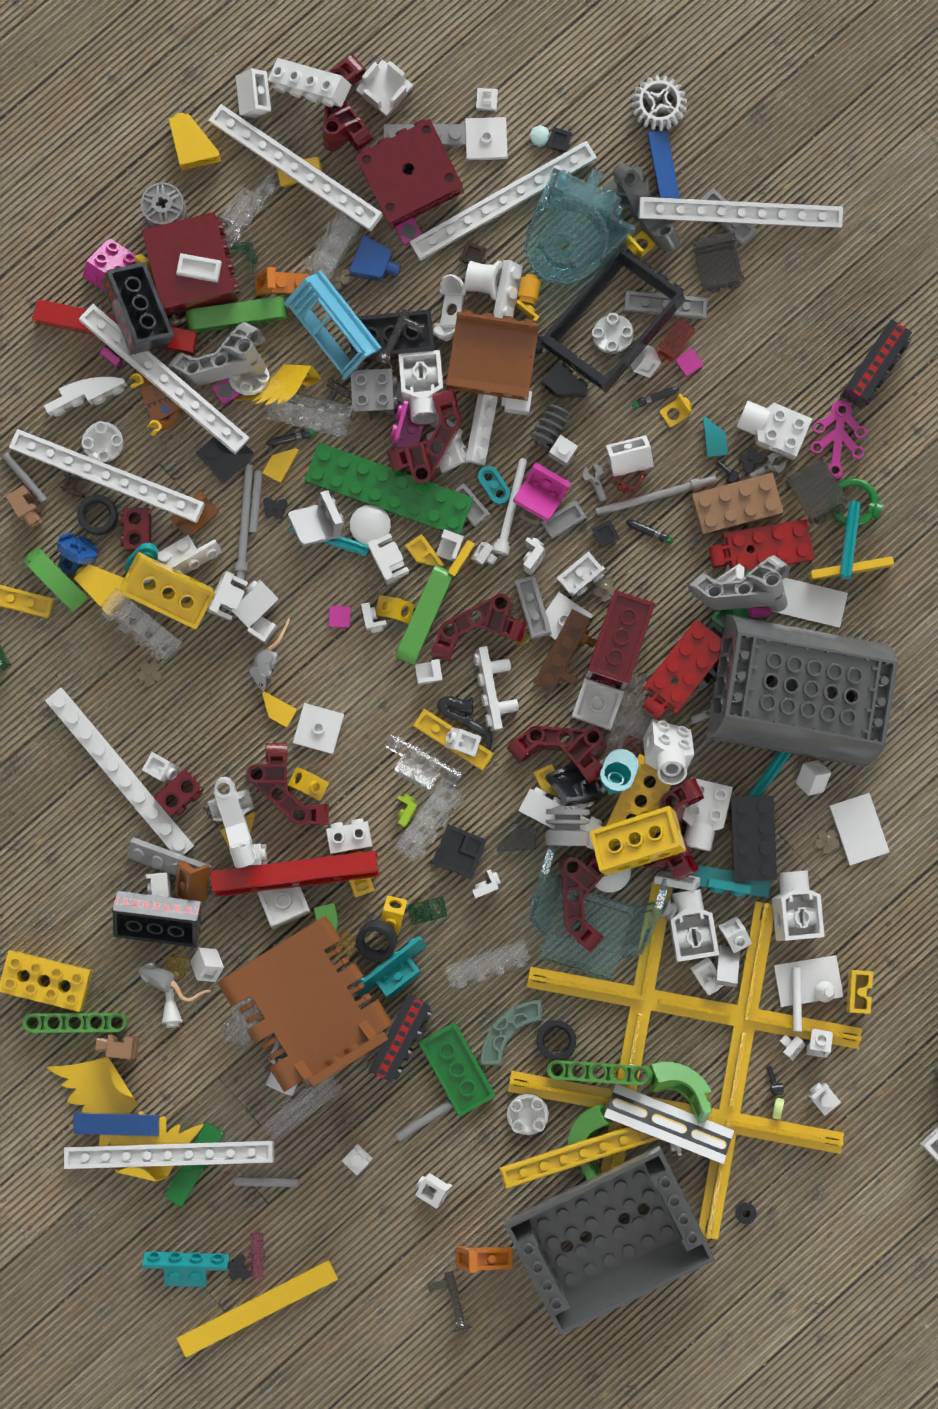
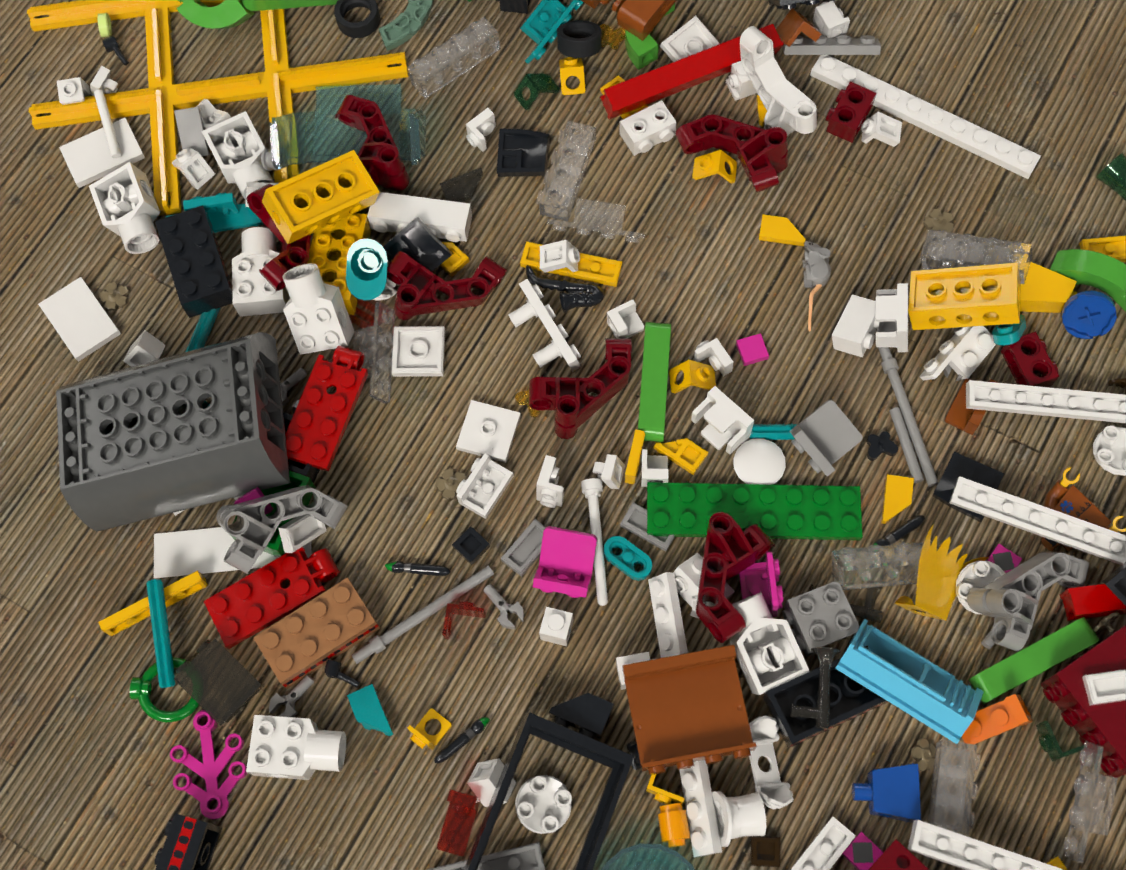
camera: 165 degrees right, 15 degrees down
(87, 502) = (1091, 349): black tyre -> none
(262, 629) = (834, 302): white panel -> none
(318, 728) = (726, 226): white plate -> none
(406, 813) = (594, 176): lime bracket -> none
(533, 607) = (528, 429): light grey tile -> none
(549, 426) = (582, 651): dark grey piece -> none
(567, 826) = (406, 189): light grey wheel -> none
(570, 636) = (474, 410): reddish brown hinge -> none
(620, 640) = (409, 406): dark red piece -> none
(629, 456) = (470, 647): white brick -> none
(689, 363) = (431, 800): dark pink tile -> none
(750, 459) = (317, 700): black piece -> none
(823, 1098) = (59, 51): white bracket -> none
(824, 991) = (76, 139): white cone -> none
(857, 991) = (41, 152): yellow brick -> none

